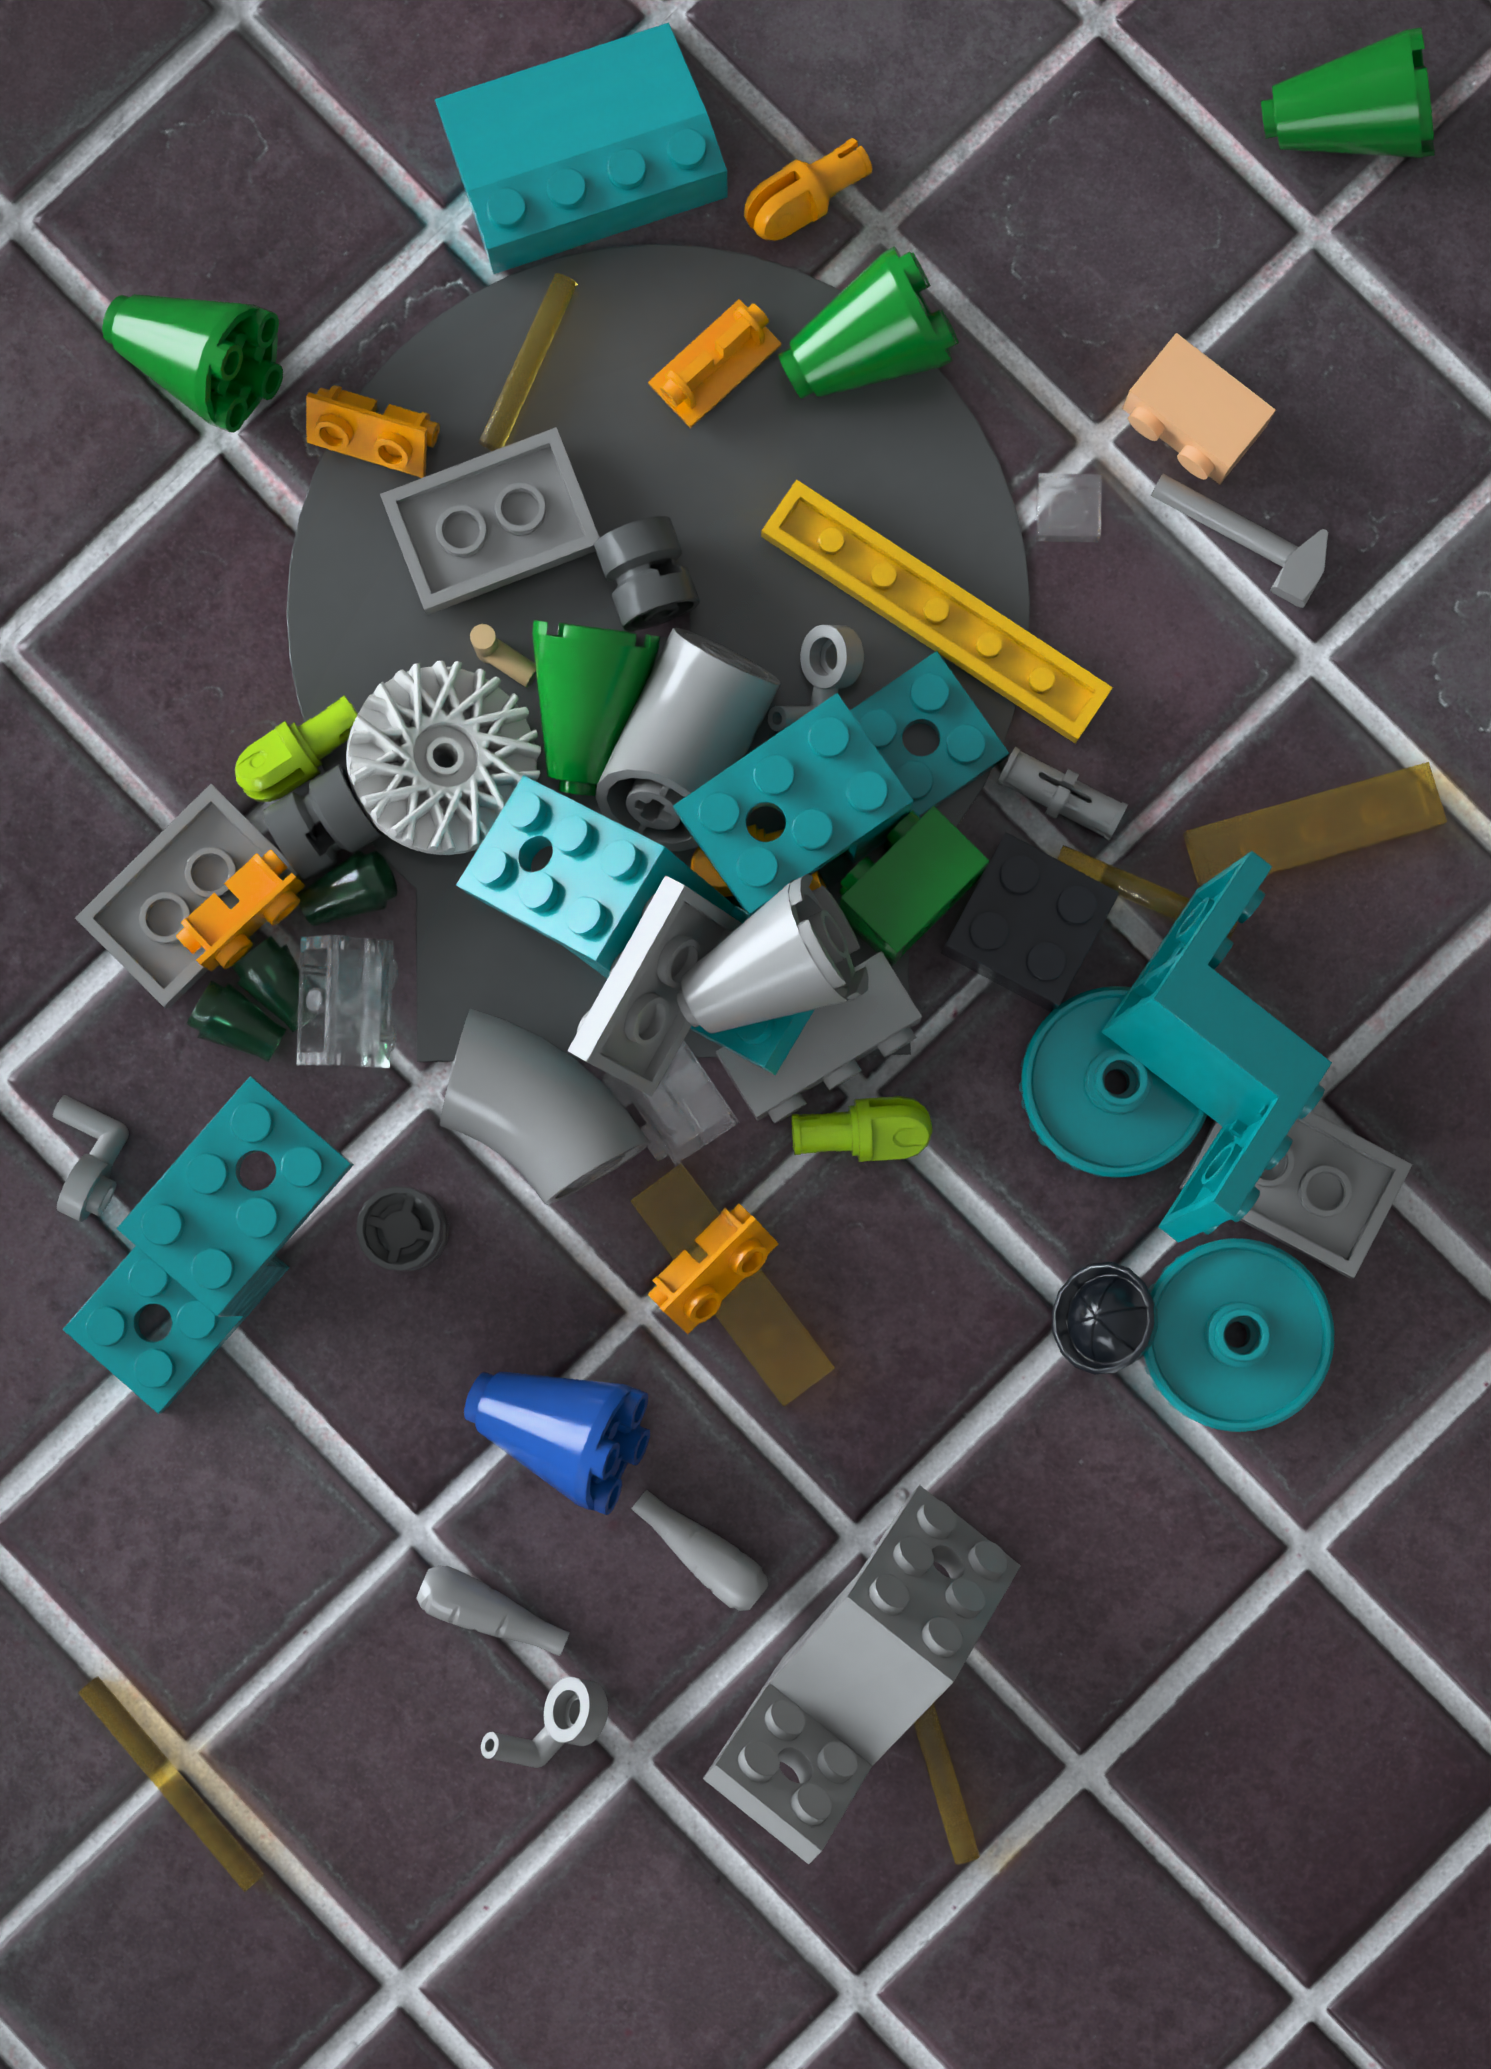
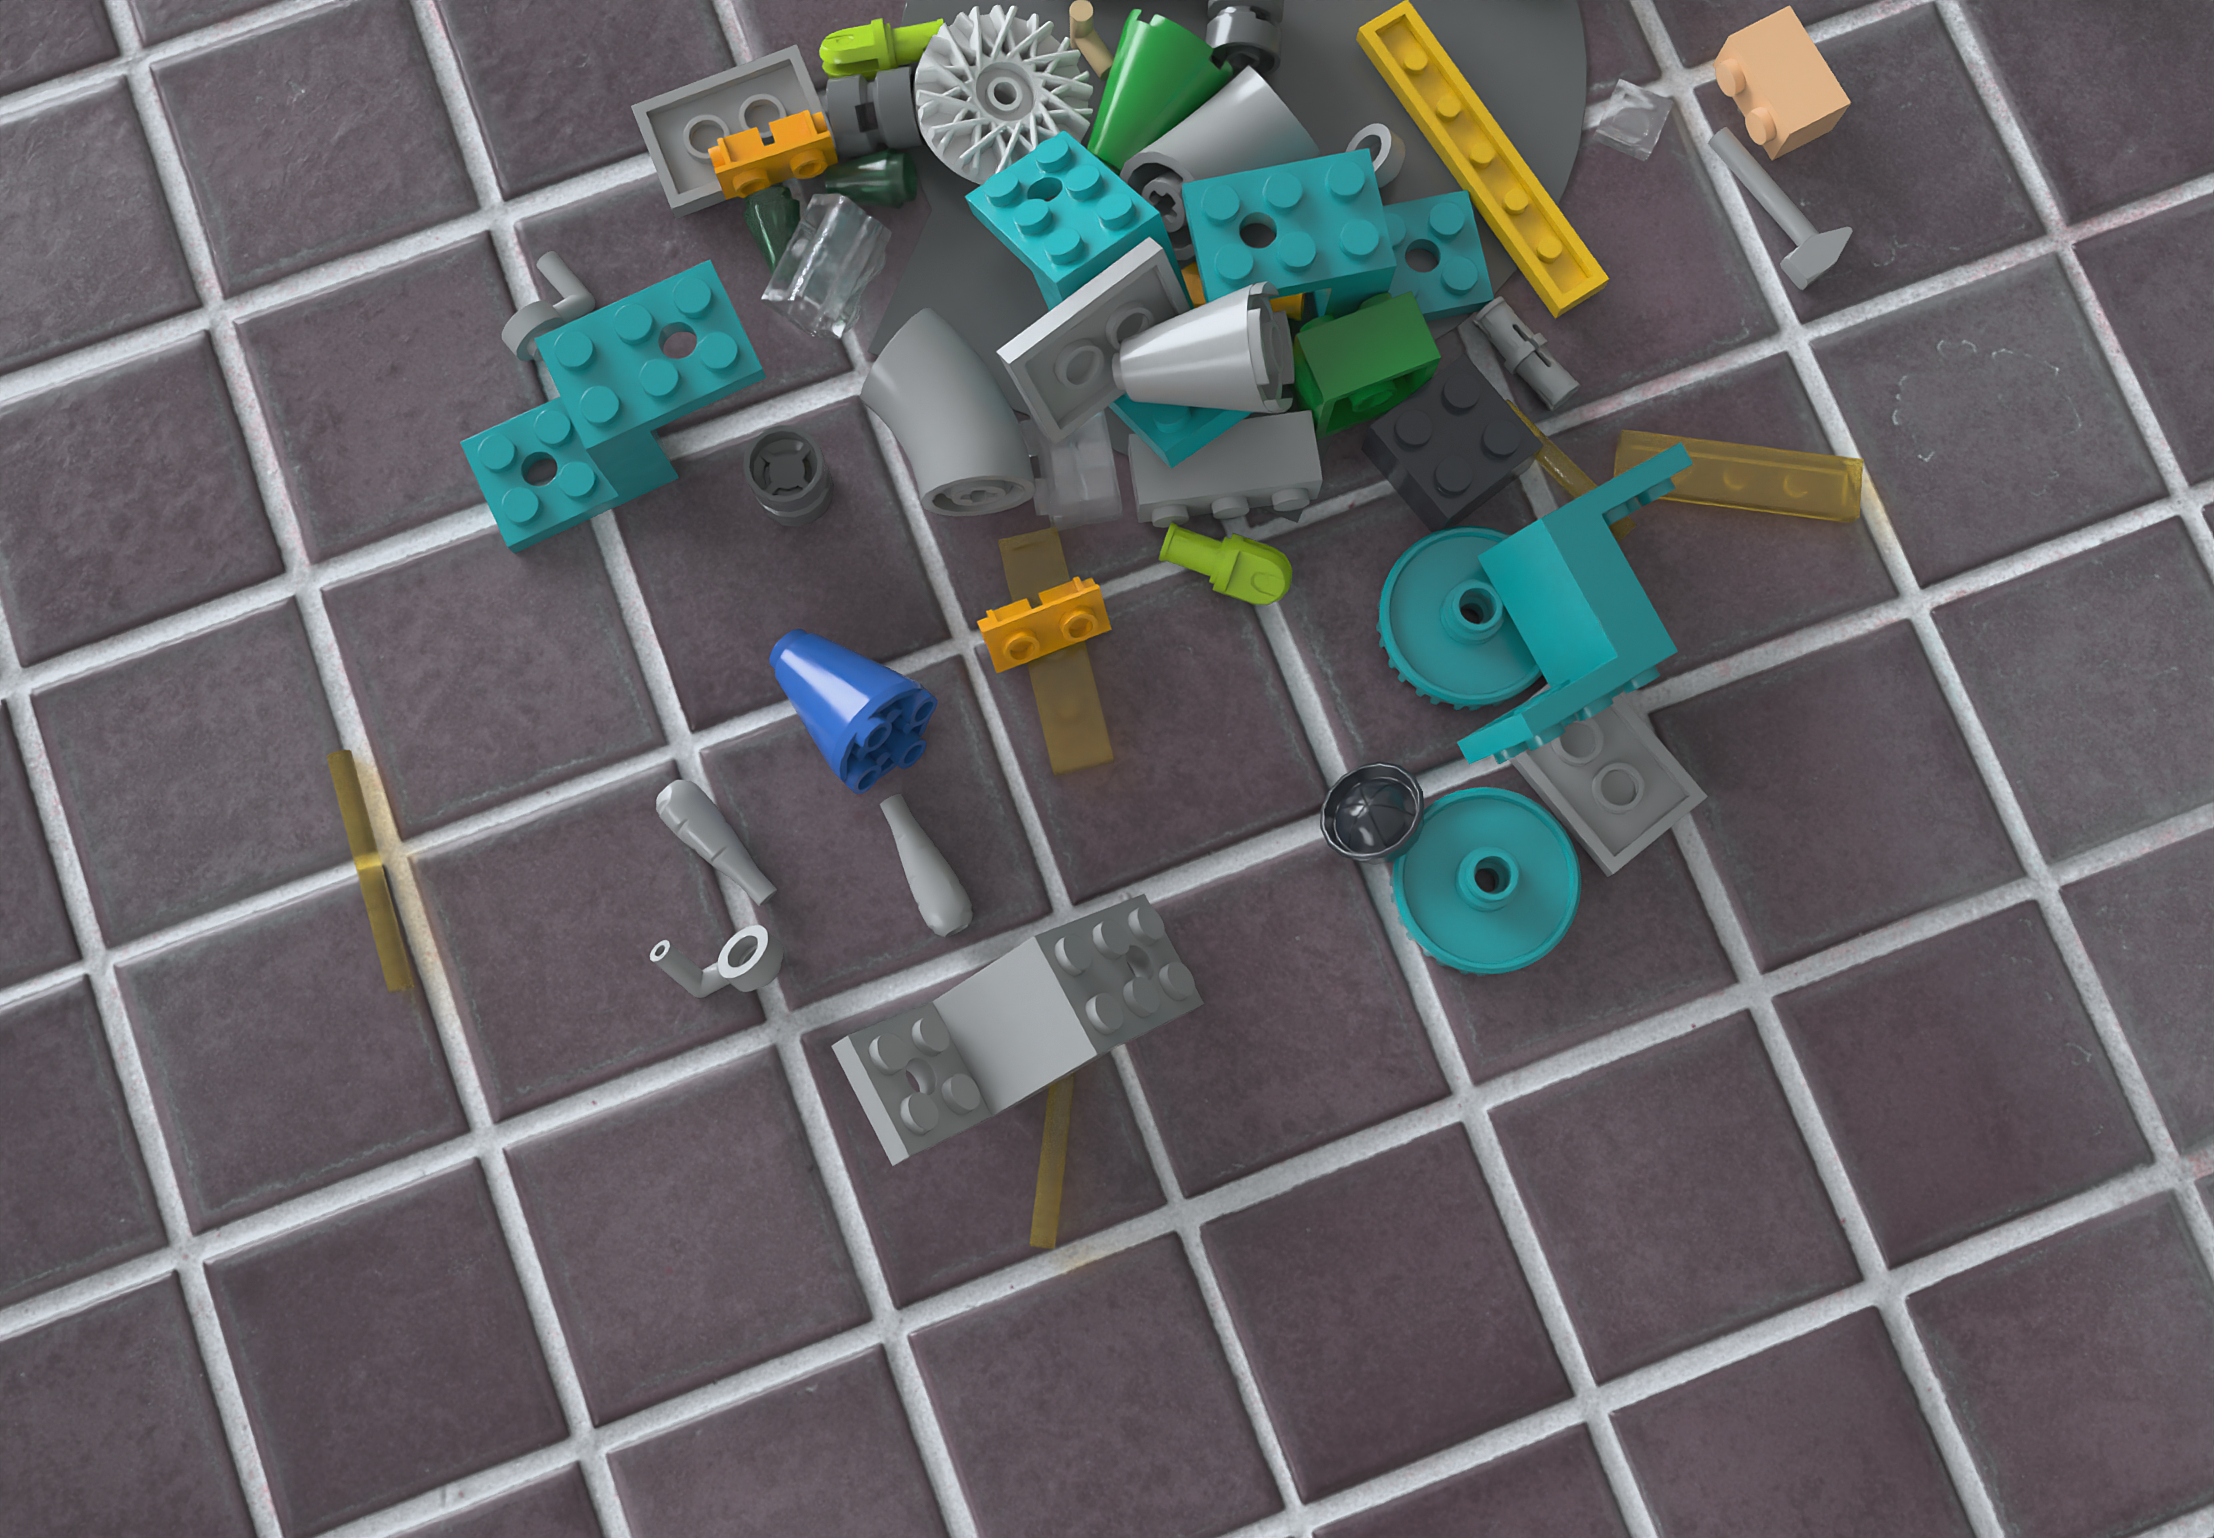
camera: 20 degrees right, 5 degrees down
(235, 1022) = (721, 238): clear green cone -> none

